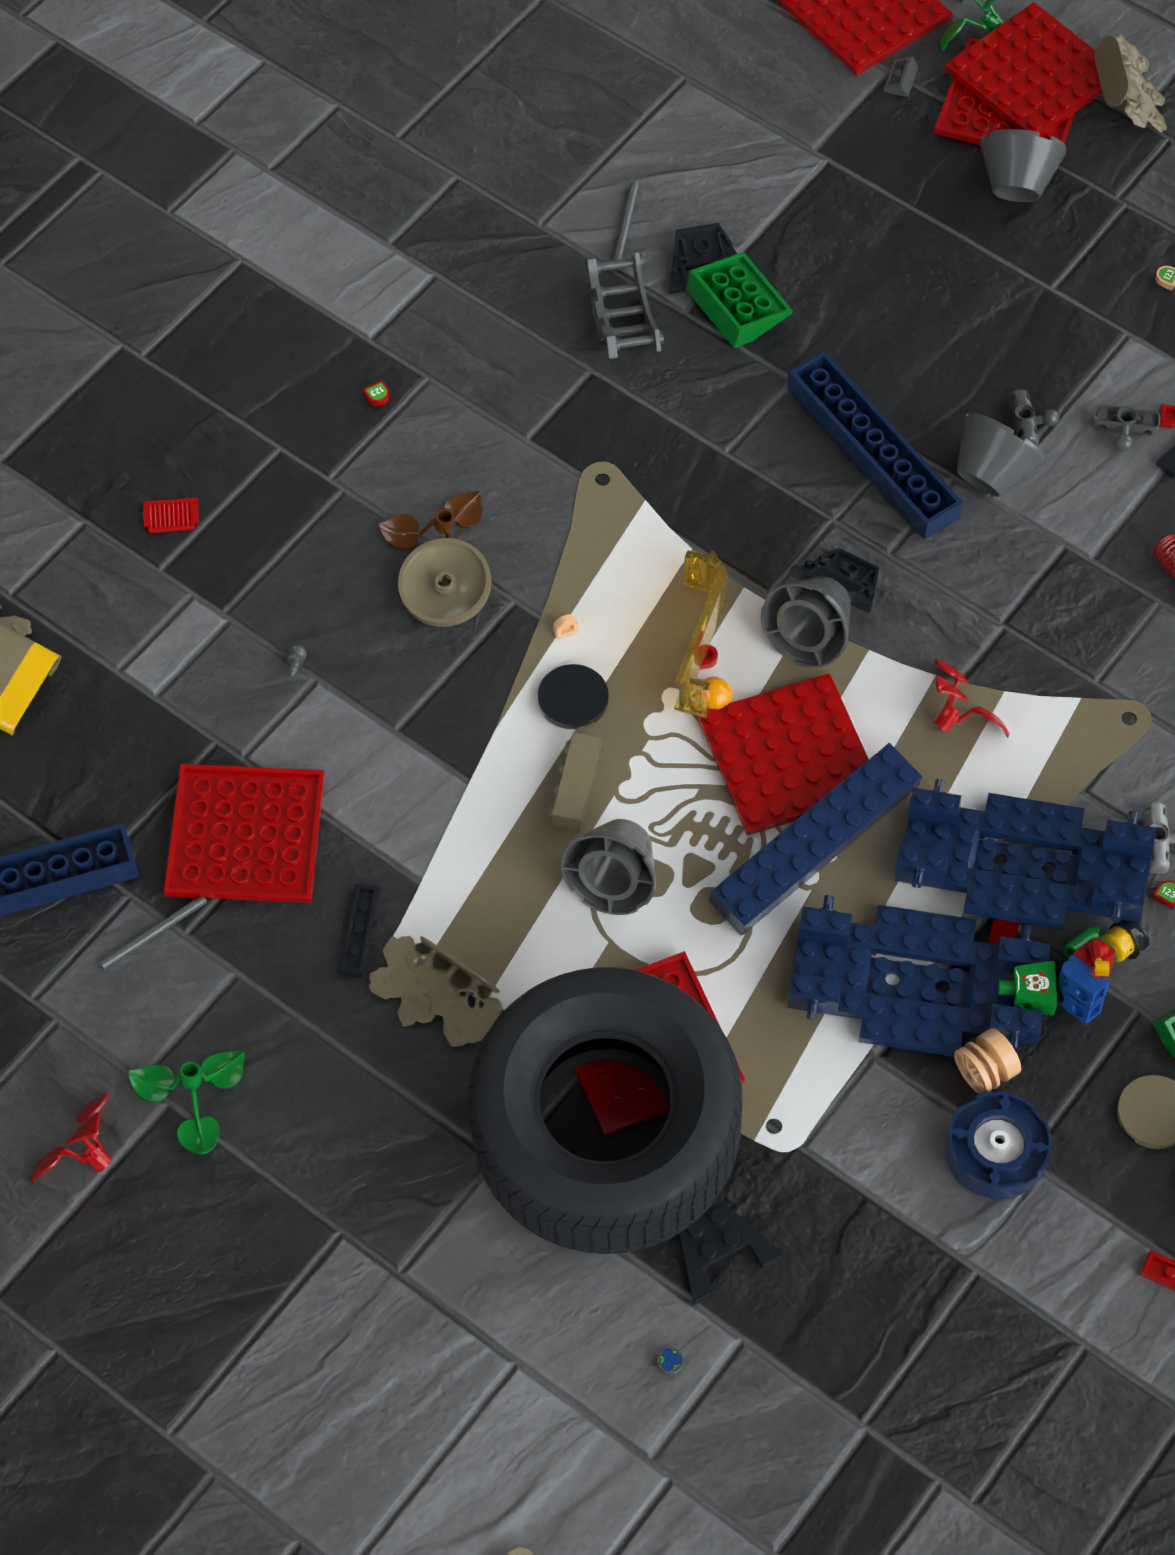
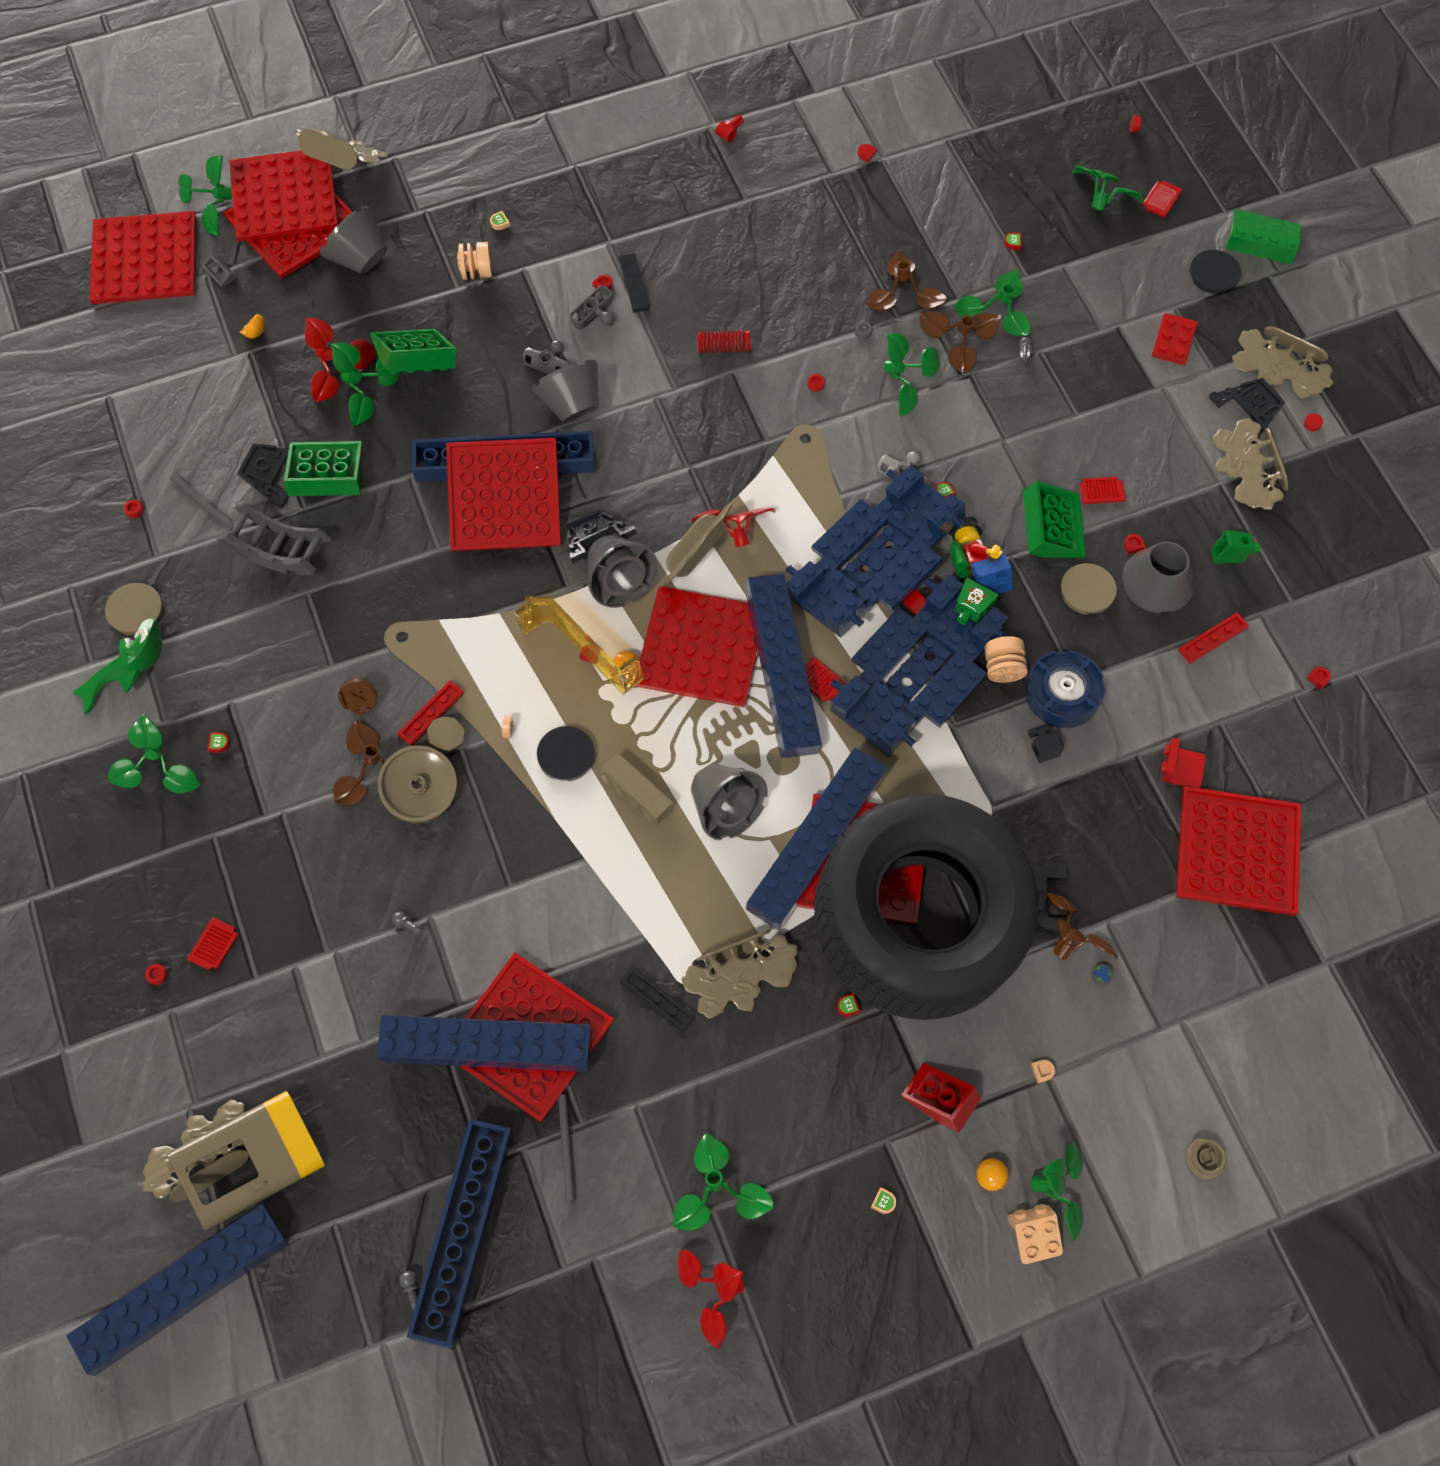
camera: 60 degrees left, 5 degrees up
(112, 487) = (156, 974): none -> red tile
(210, 795) = (484, 1043): none -> dark blue brick
(272, 1262) = (884, 1202): none -> tile
(290, 334) = (146, 734): none -> green plant
(325, 1431) = (1036, 1233): none -> light nougat bracket
(367, 1357) = (992, 1174): none -> light orange hair
(382, 1402) = (1055, 1180): none -> green plant
(412, 269) = (134, 659): none -> green piece
(420, 1260) = (942, 1097): none -> red slope
(461, 1117) = (848, 1006): none -> tile
(469, 240) = (131, 606): none -> dark tan tile
(505, 475) = (357, 695): none -> reddish brown tile
(517, 576) = (445, 734): none -> dark tan hat
(517, 1353) = (1043, 1070): none -> light nougat tile
(534, 552) = (434, 709): none -> red tile
(575, 174) = (133, 509): none -> red tile
(678, 1278) = (1070, 935): none -> reddish brown plant
(709, 977) = (815, 839): none -> dark blue brick
(824, 468) = (503, 494): none -> red plate
(833, 881) = (820, 680): none -> red window
(855, 144) = (254, 327): none -> light orange hair
(864, 234) = (344, 359): none -> green plant
(876, 195) = (317, 336): none -> red plant
(896, 677) = (695, 545): none -> dark tan plant
(913, 1163) = (1045, 746): none -> black brick
(926, 1441) = (1239, 851): none -> red plate
(934, 291) = (414, 350): none -> green slope
(991, 1323) = (1182, 766): none -> red bracket
(1091, 281) = (475, 260): none -> light nougat wheel

